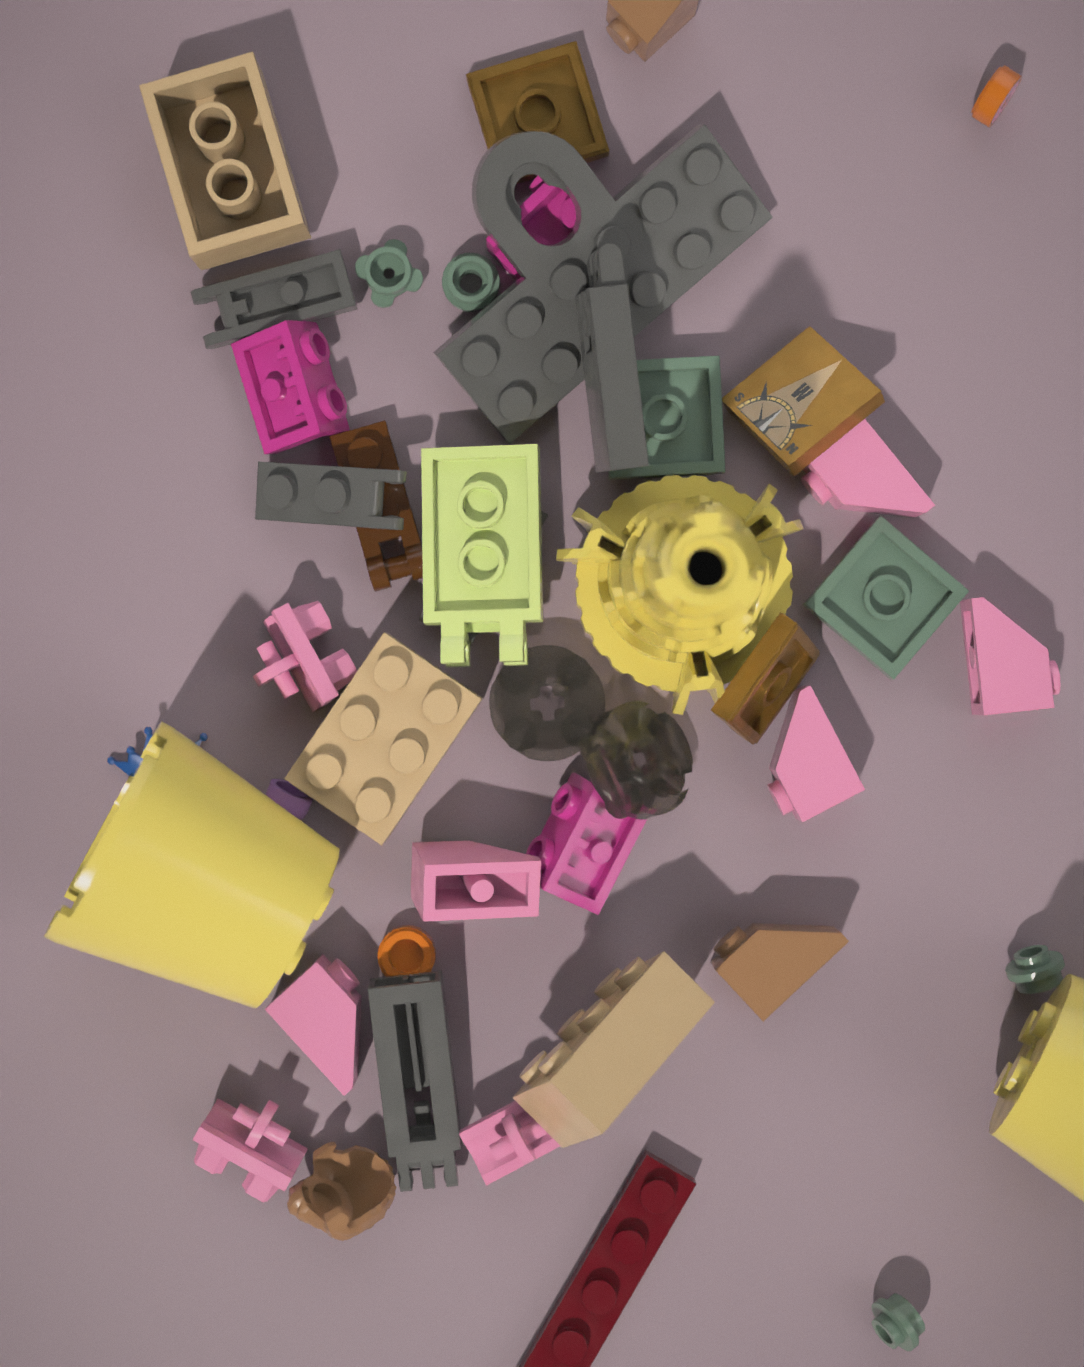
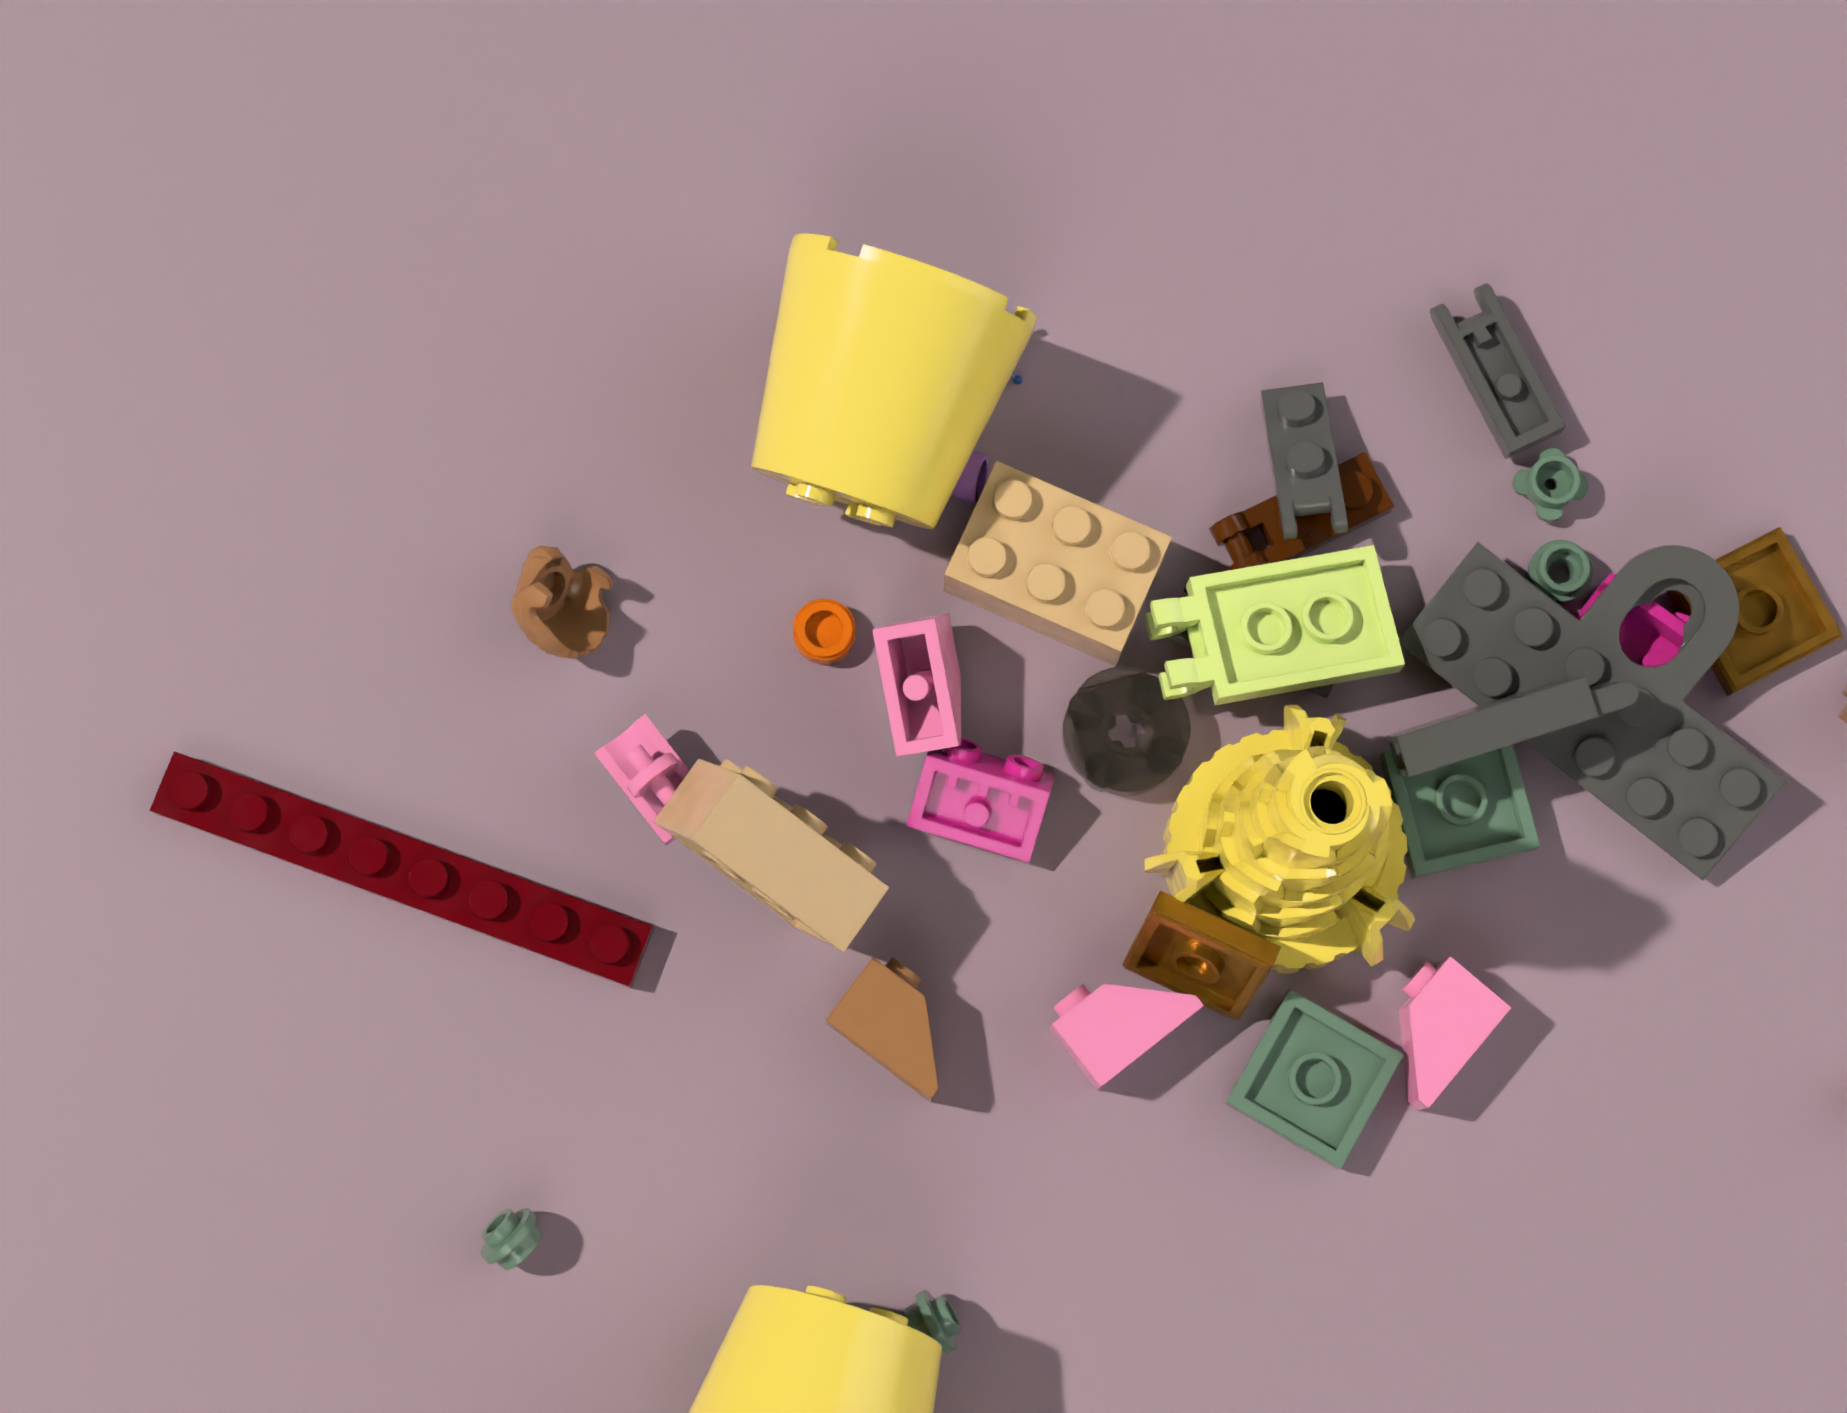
camera: 75 degrees right, 10 degrees down
(225, 161) = (1630, 292): tan brick -> none
(251, 1143) = (597, 502): bright pink hips -> none
(290, 385) = (1410, 402): dark pink bracket -> none
(292, 635) = (1147, 449): bright pink hips -> none
(324, 1019) = (742, 553): bright pink slope -> none
(416, 1053) = (719, 653): dark grey hinge -> none
(611, 764) = (1058, 816): clear smoke plate -> none
(802, 400) = (1511, 944): pearl gold tile -> none
(1005, 663) = (1267, 1226): bright pink slope -> none

